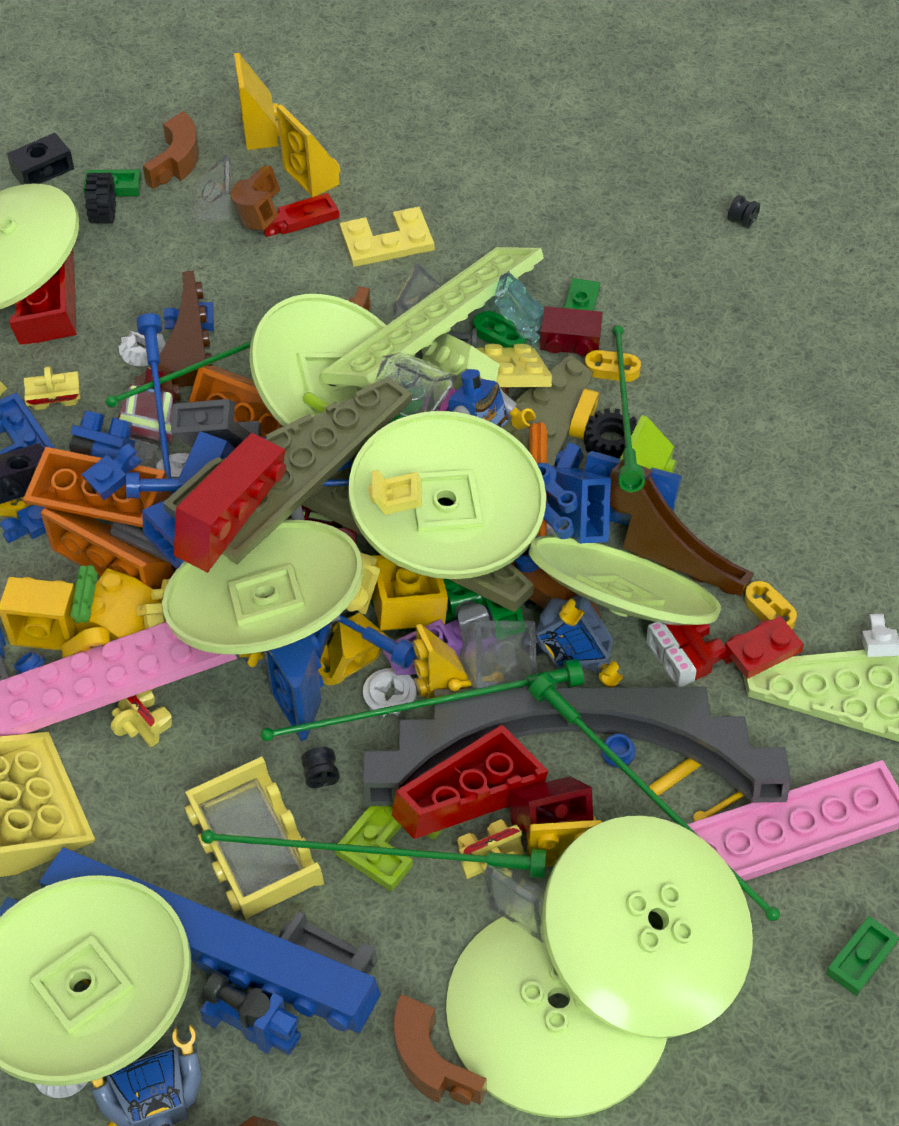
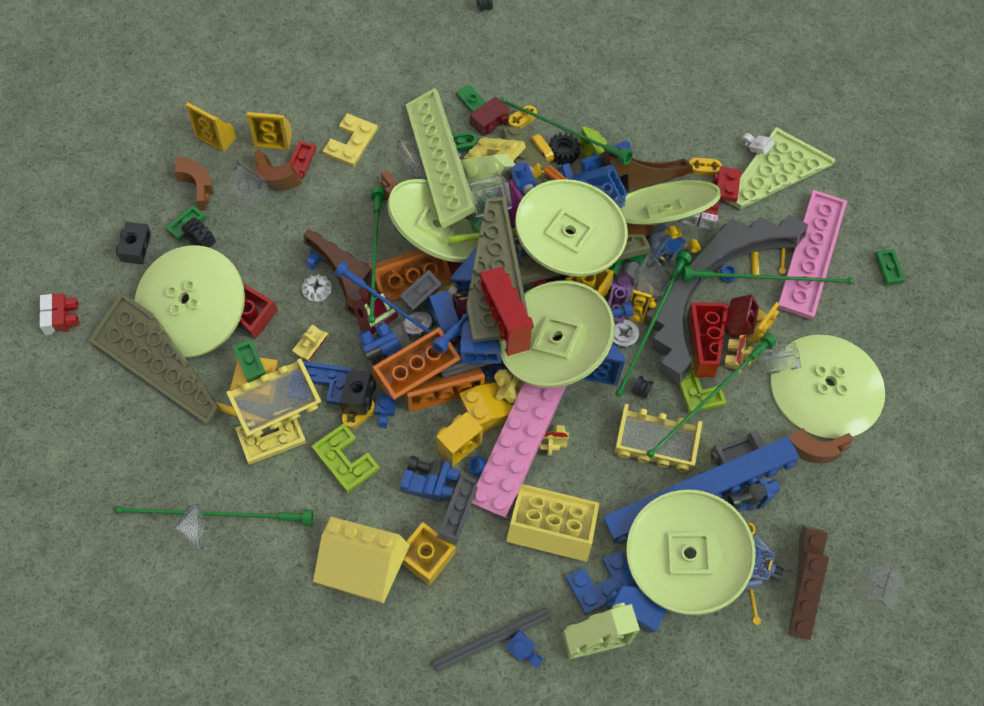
camera: 55 degrees left, 10 degrees up
(83, 594) = (476, 413): bright green axle -> none
(85, 641) = (494, 433): yellow beam -> none
(110, 474) = (421, 351): blue plate -> none
(396, 493) = (564, 243): light yellow bracket -> none
(519, 307) = (465, 122): clear light blue plate -> none
(612, 956) = (808, 316): yellowish green dish -> none

